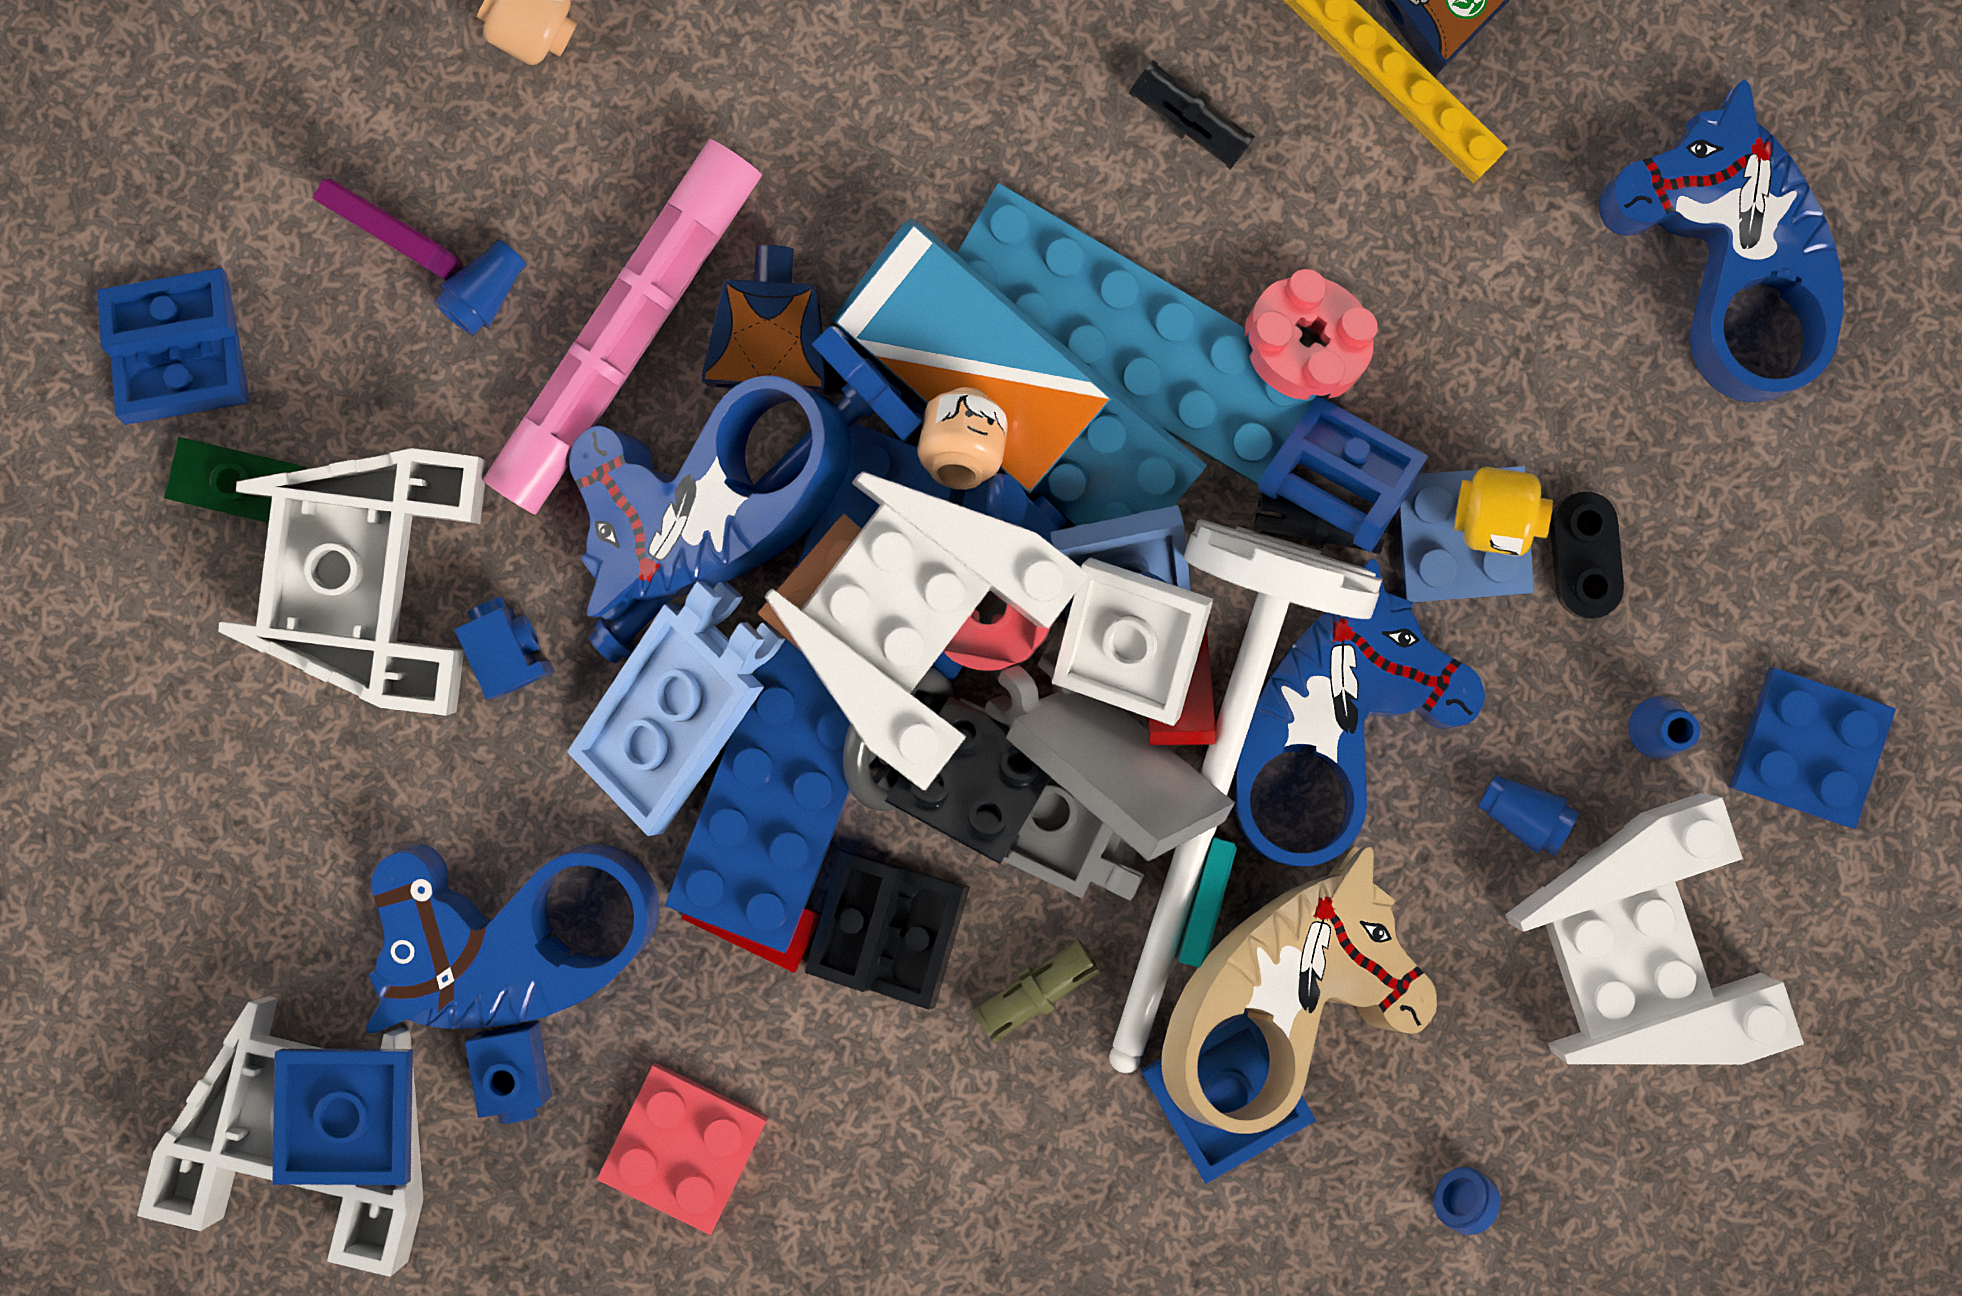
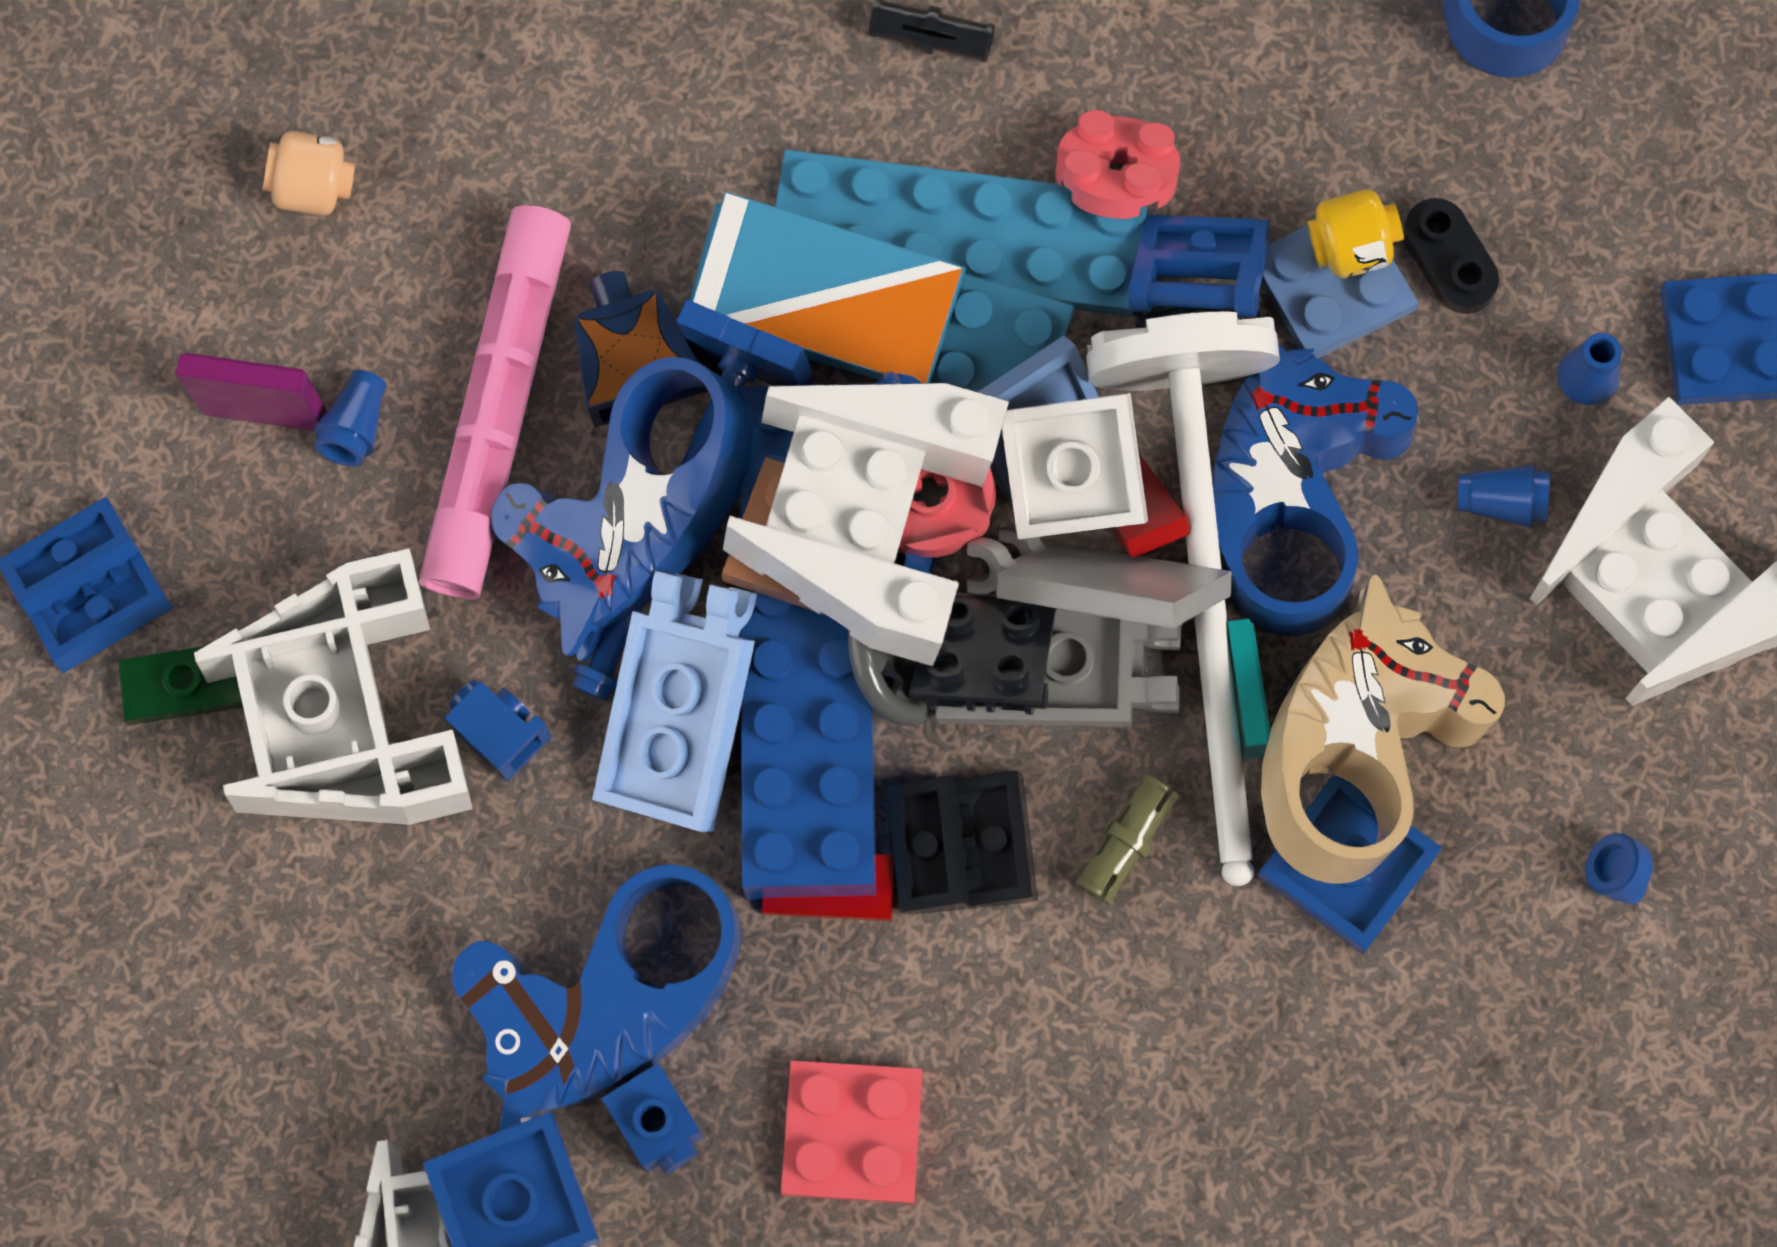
camera: 15 degrees left, 15 degrees down
(962, 438) = (845, 347): light nougat head -> none

